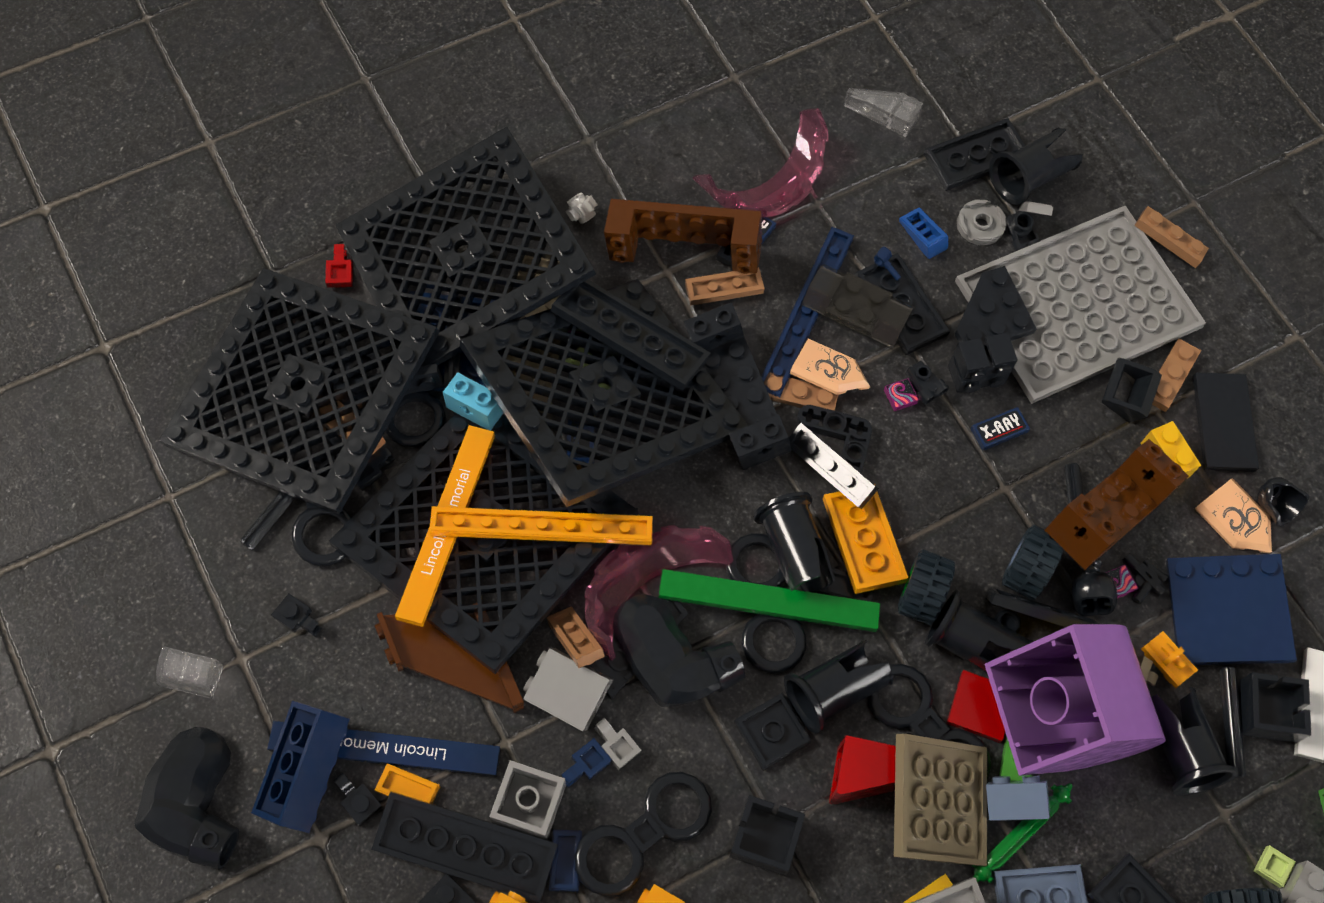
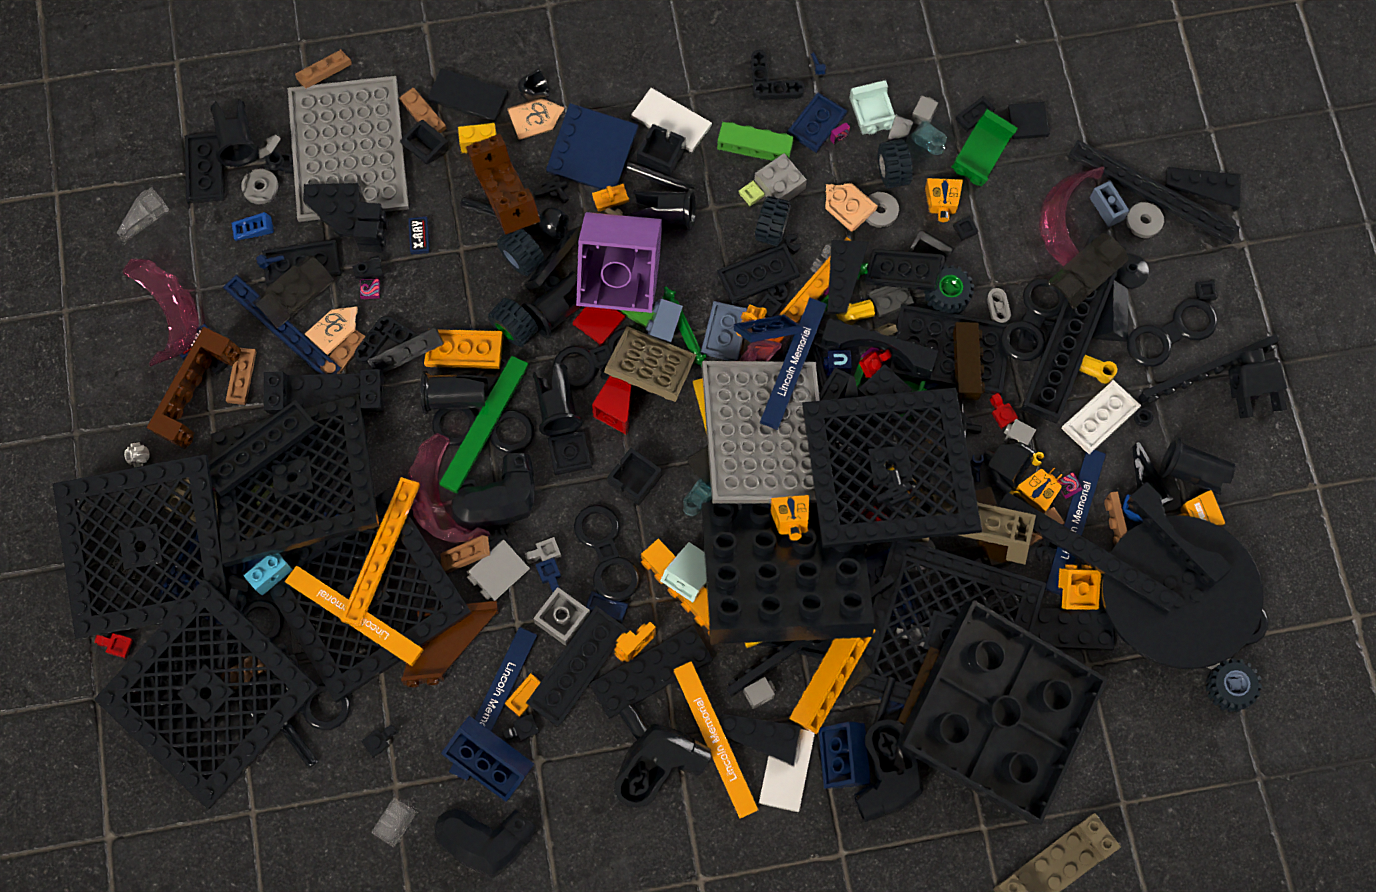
camera: 70 degrees left, 5 degrees up
(1124, 581) = (549, 202): tile -> none

